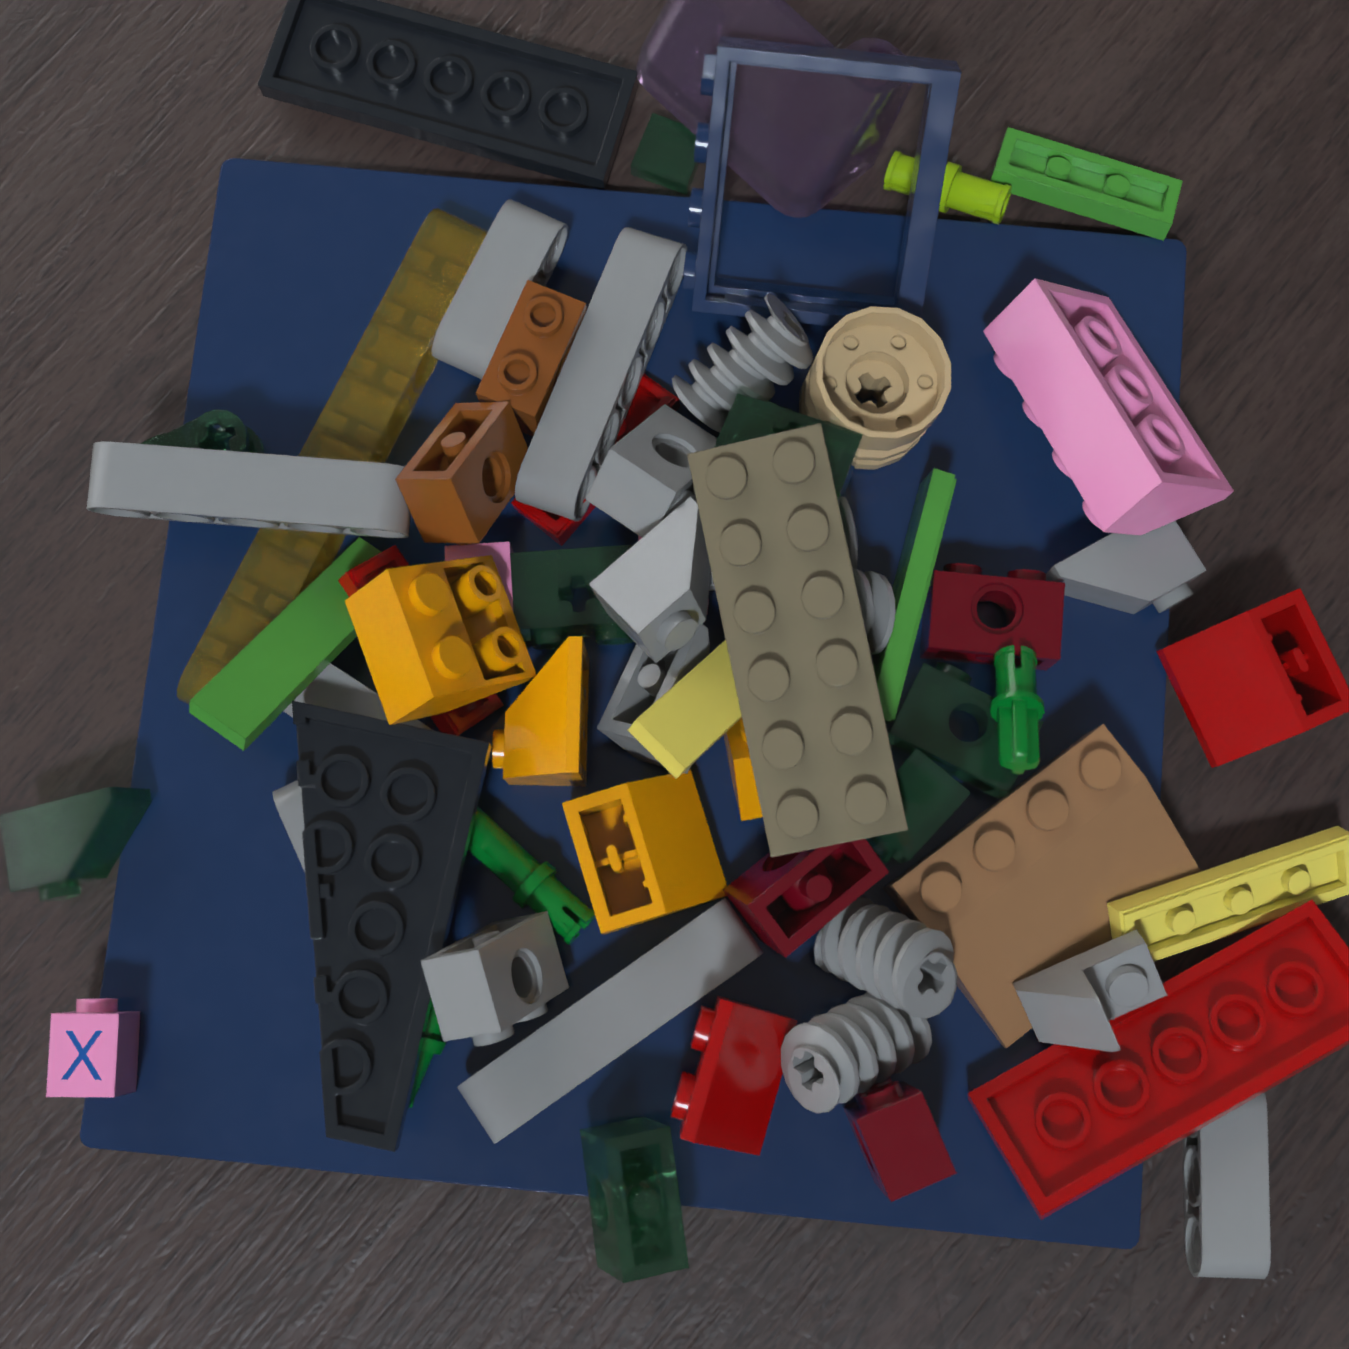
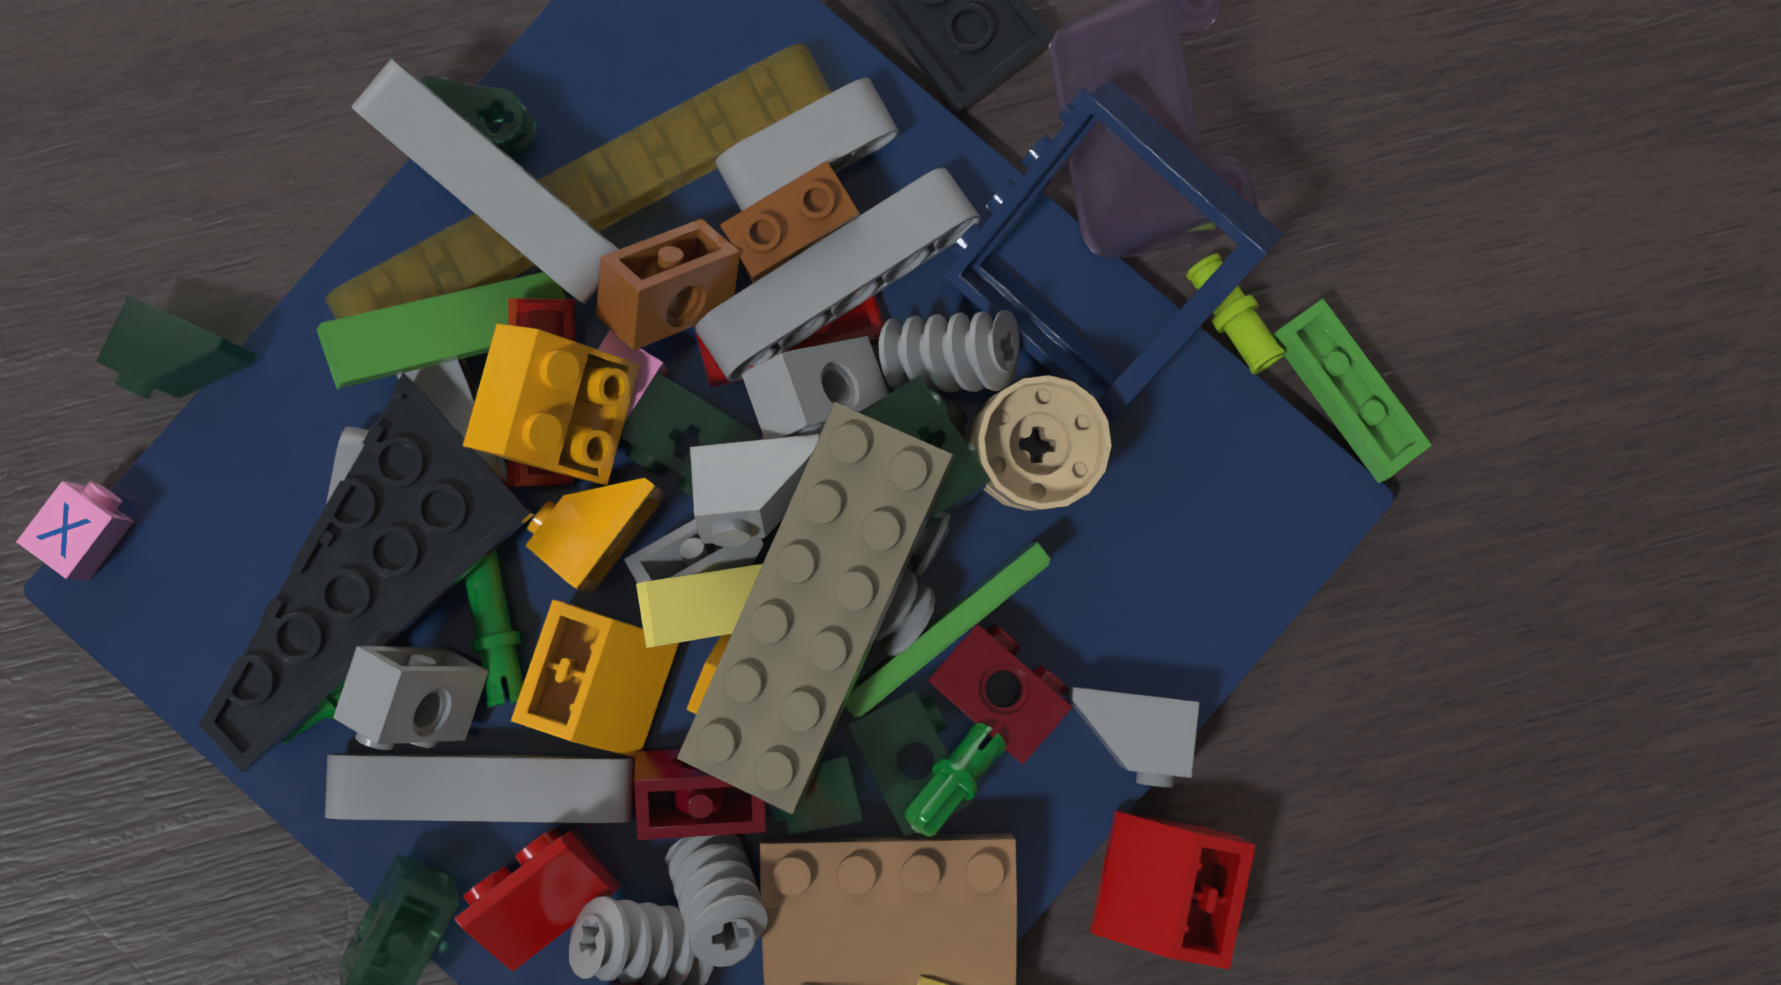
camera: 30 degrees right, 5 degrees up
(666, 154) = (1028, 118): clear green tile -> none
(1103, 409) = (1210, 592): bright pink slope -> none

